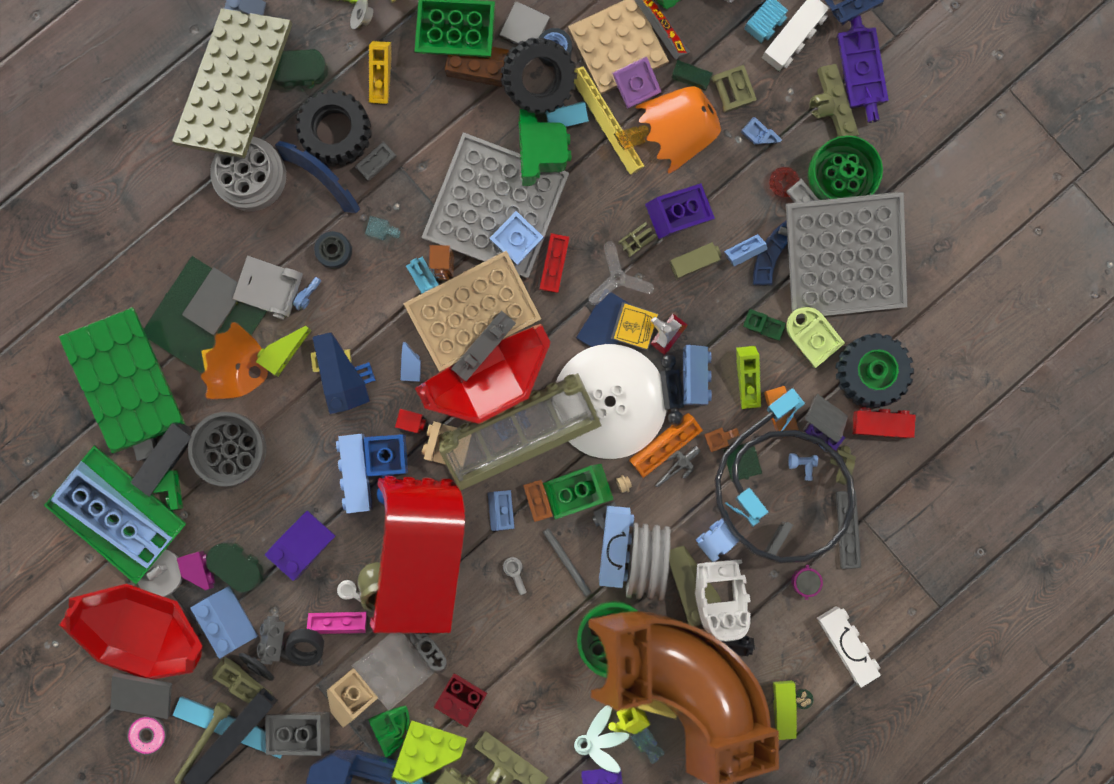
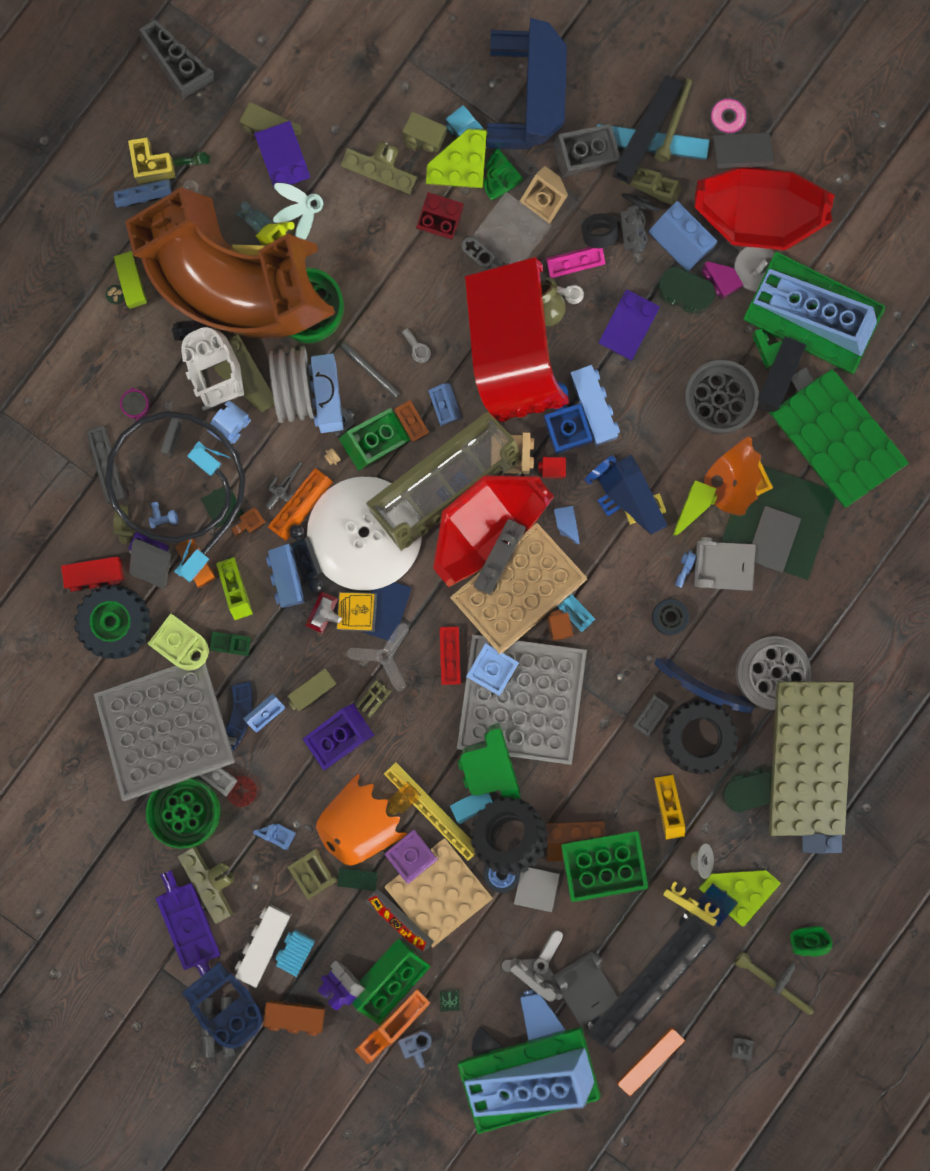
camera: 165 degrees right, 0 degrees up
(364, 407) = (599, 470): none -> blue tile
(380, 228) = (631, 650): clear light blue plate -> none
(848, 646) = (79, 350): white brick -> none

